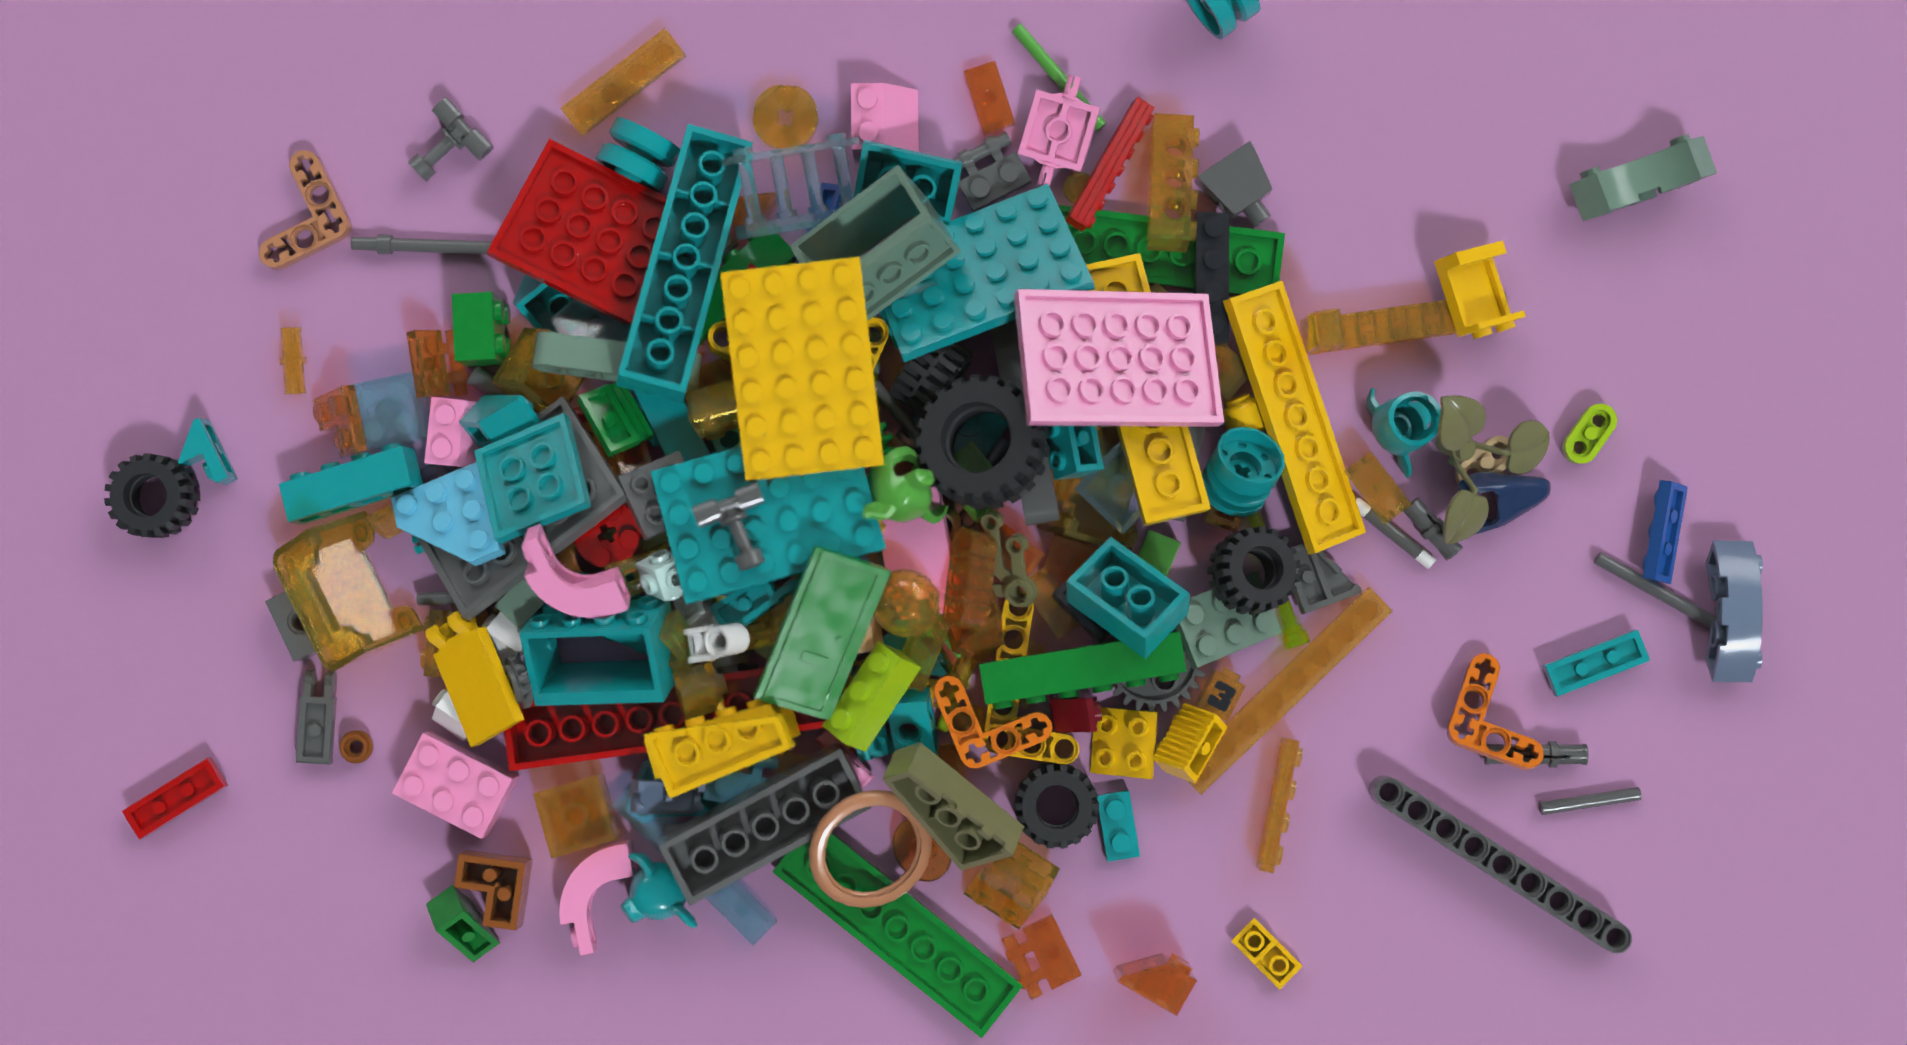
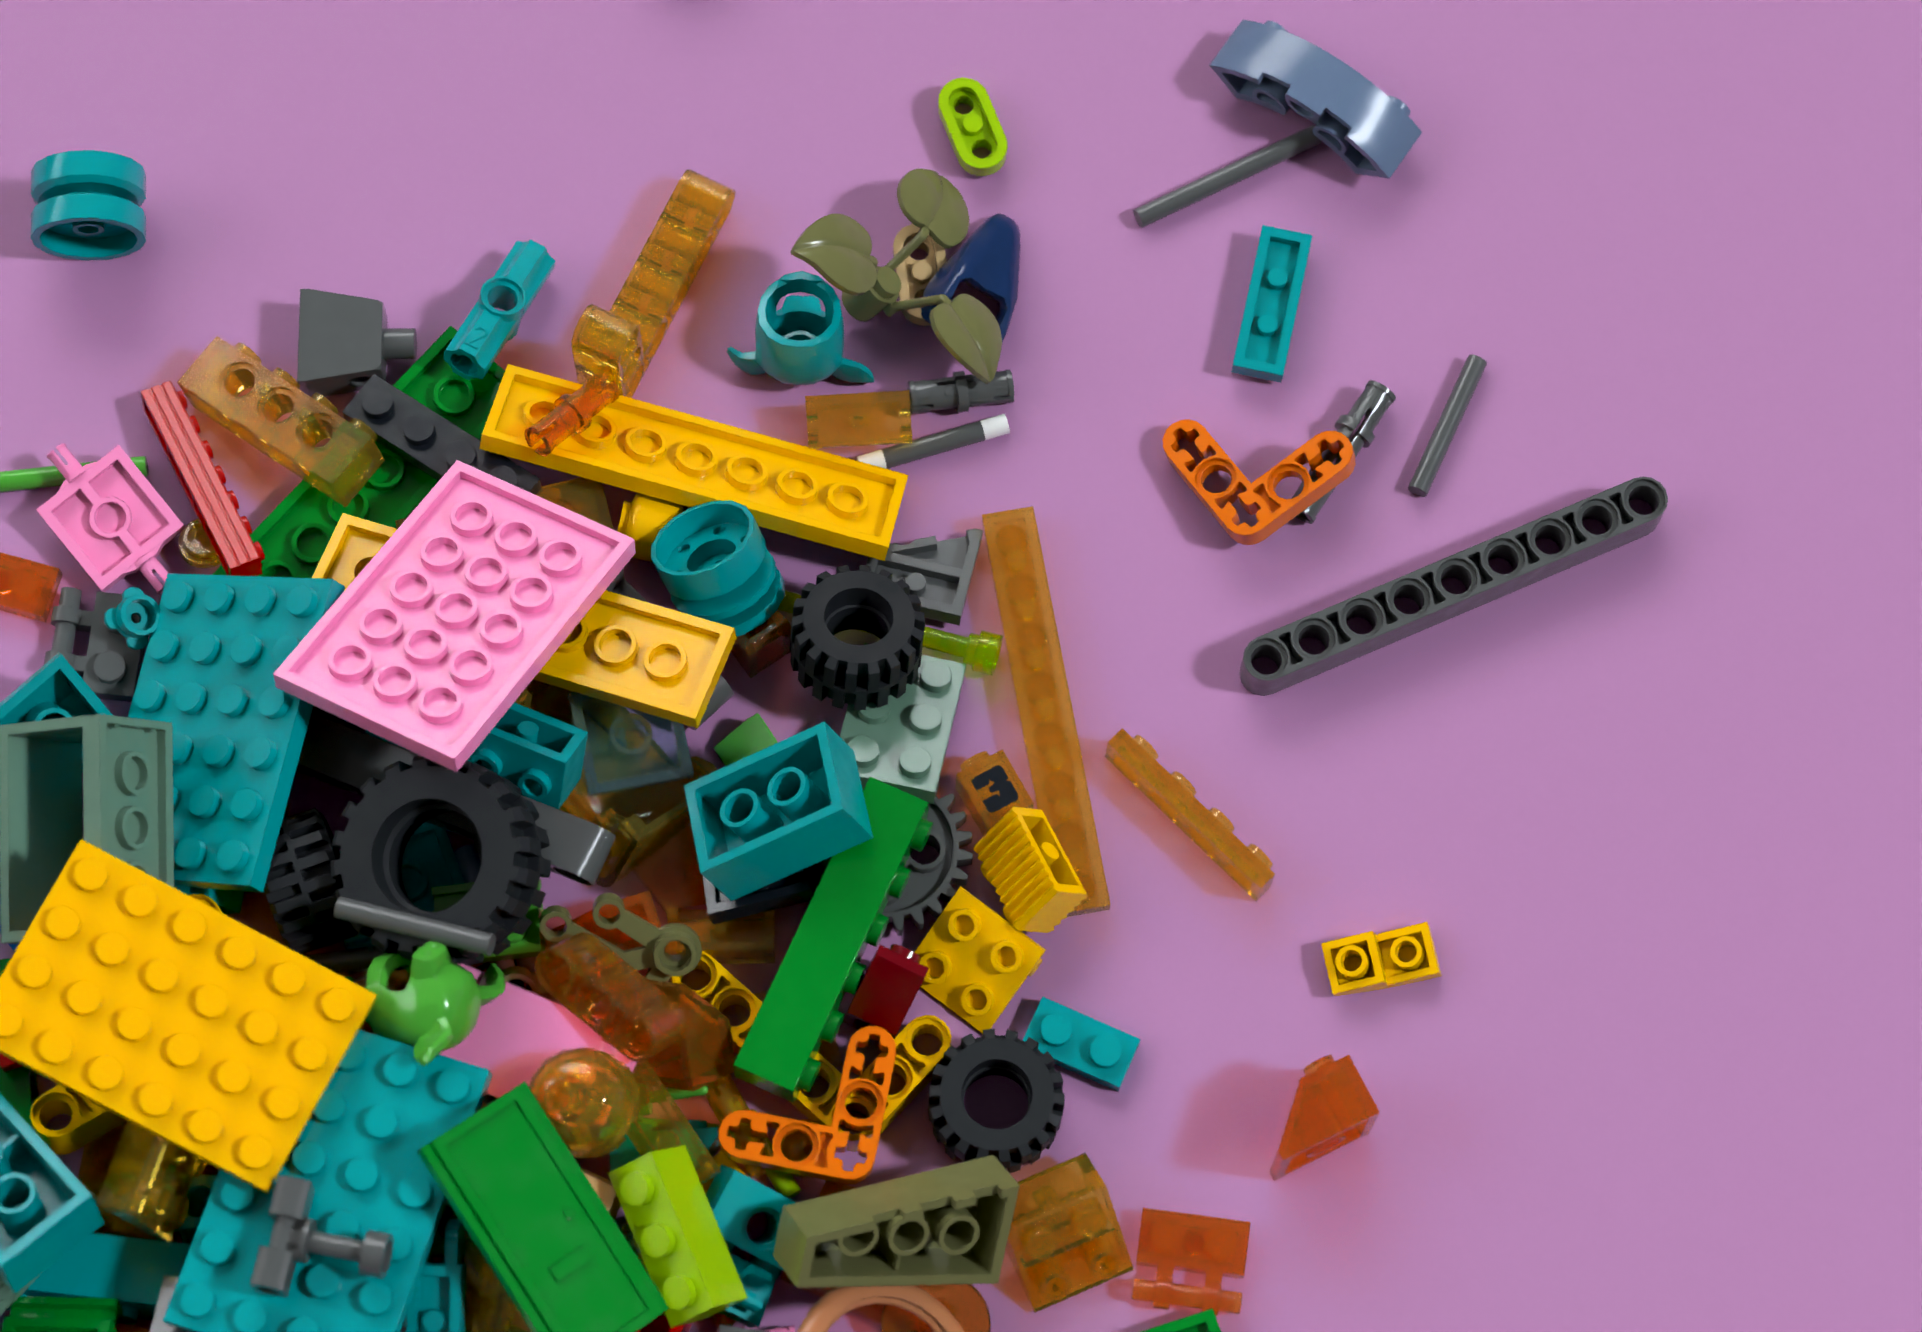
camera: 60 degrees left, 15 degrees down
(934, 457) = (414, 926): none -> dark grey bar
(1006, 176) = (137, 603): none -> teal plate
(1274, 337) = (572, 414): none -> clear orange pin
(1294, 254) = (489, 329): none -> teal piece
(1475, 291) = (691, 143): yellow panel -> none
(1664, 531) = (1160, 116): blue plate -> none

